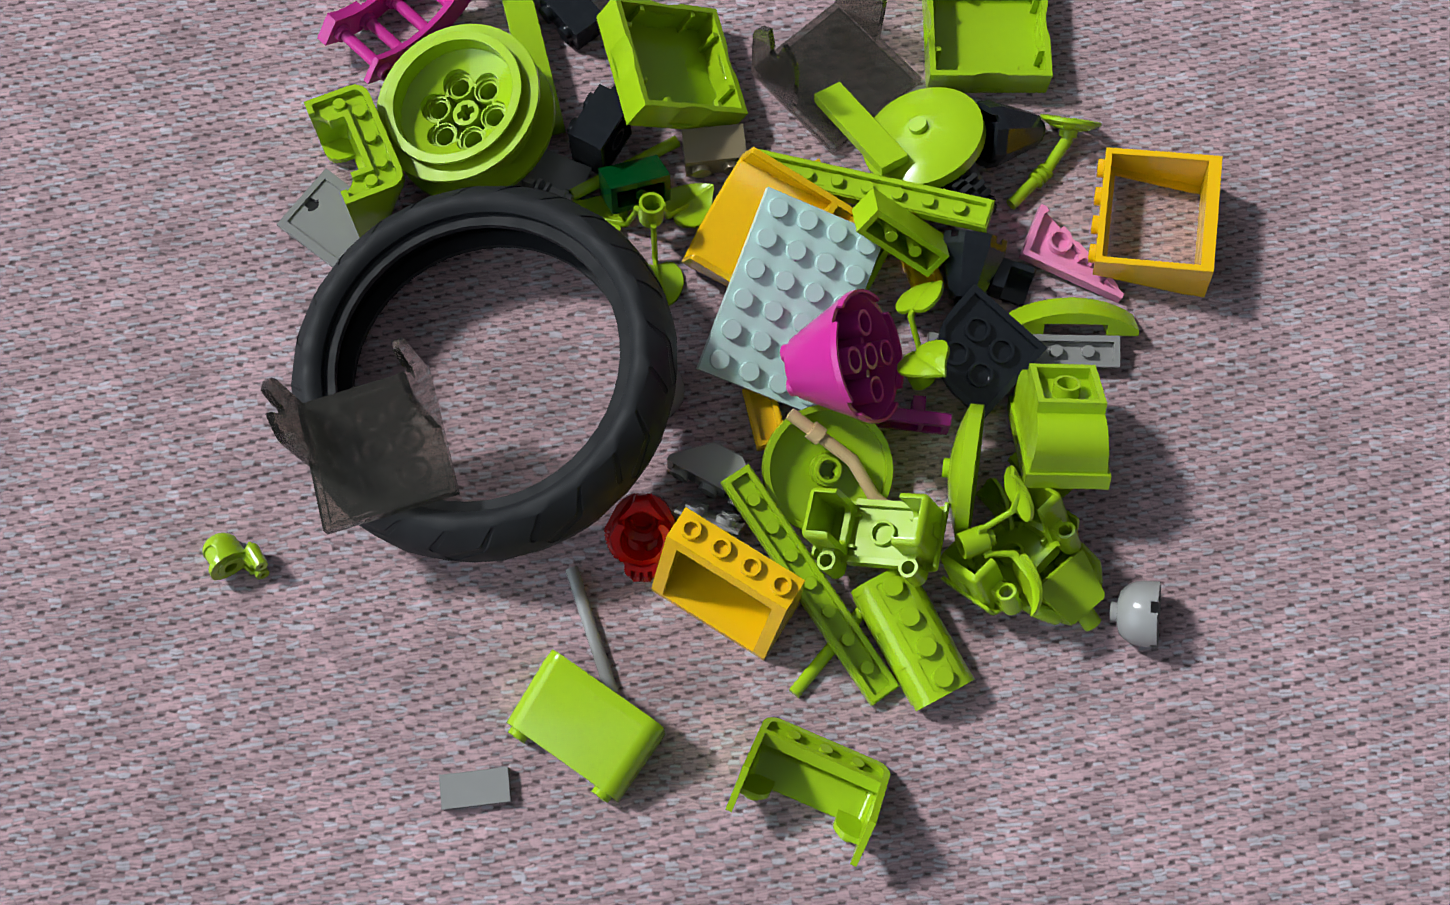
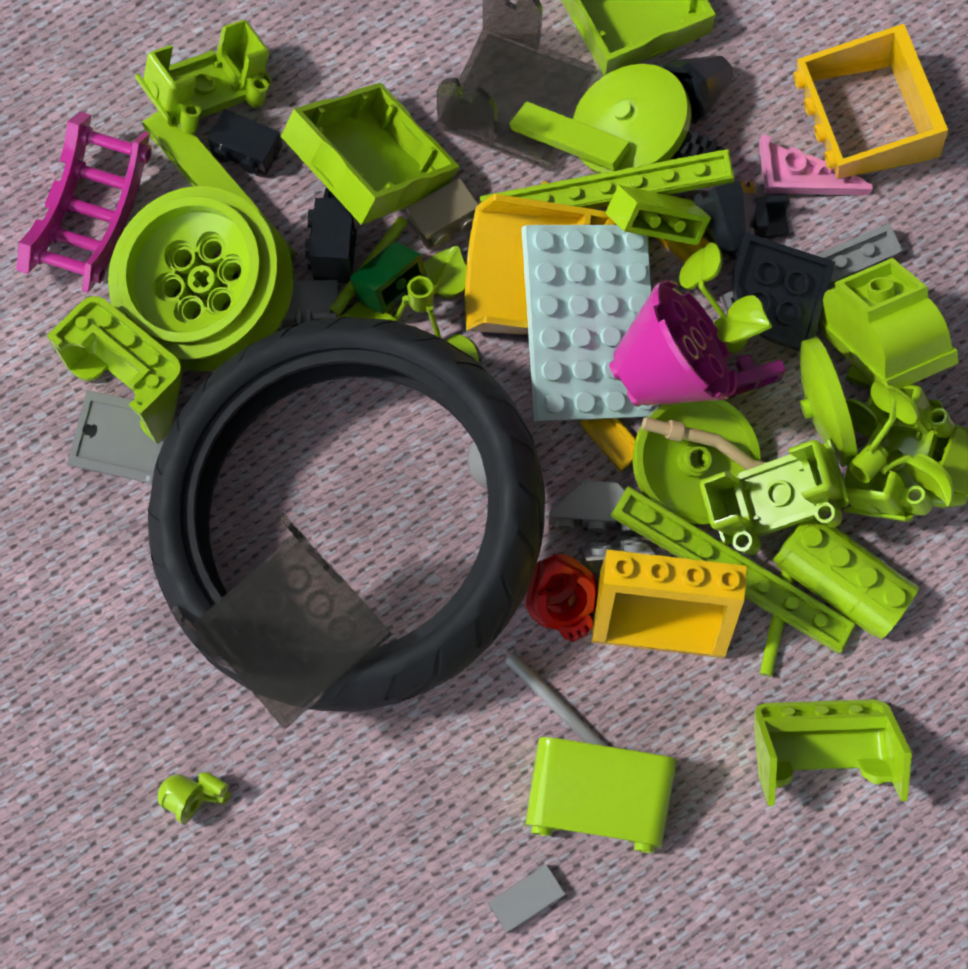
camera: 25 degrees left, 0 degrees up
(1039, 176) = (751, 58): lime dish -> none
(1076, 311) = (842, 218): lime slope -> none

